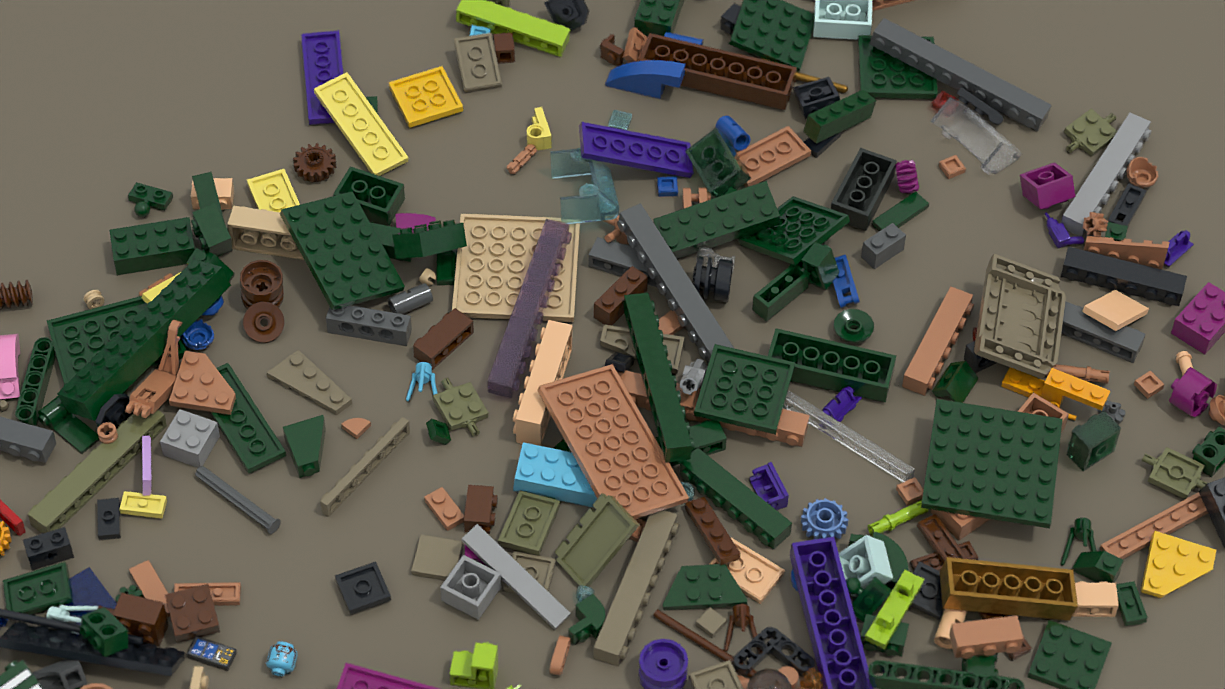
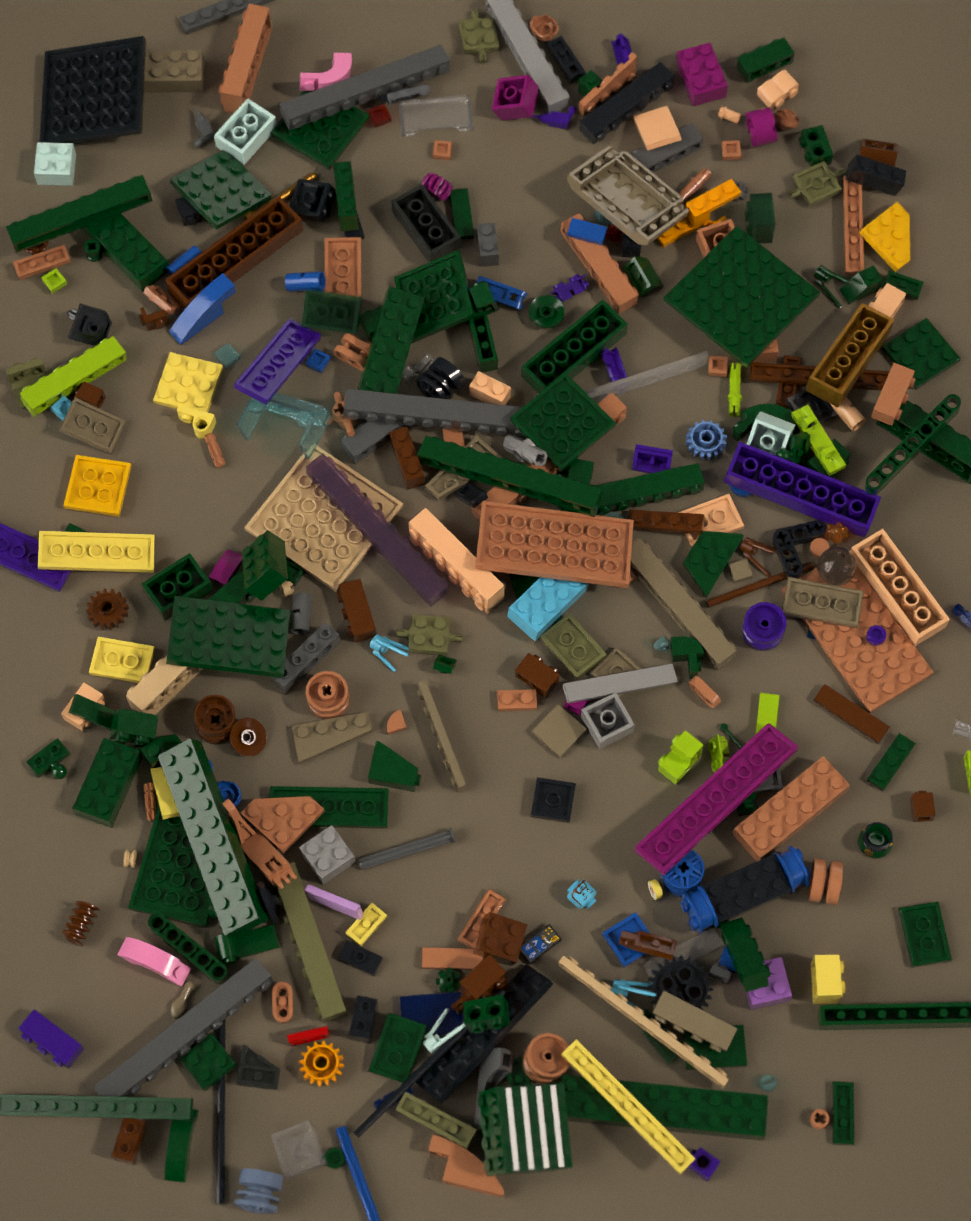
camera: 55 degrees left, 15 degrees up
(28, 481) = (282, 1003): none -> nougat plate
(103, 428) = (284, 909): nougat bush -> none
(344, 358) = (327, 695): none -> nougat wheel
(569, 106) = (188, 382): none -> light yellow plate
(597, 541) = (632, 607): olive hinge -> none
(737, 323) = (489, 390): none -> light nougat brick
(901, 333) = (576, 284): none -> dark purple hinge
(957, 308) = (587, 231): none -> blue tile
(965, 48) = (340, 71): none -> bright pink arch
(1095, 224) = (579, 89): nougat gear -> none

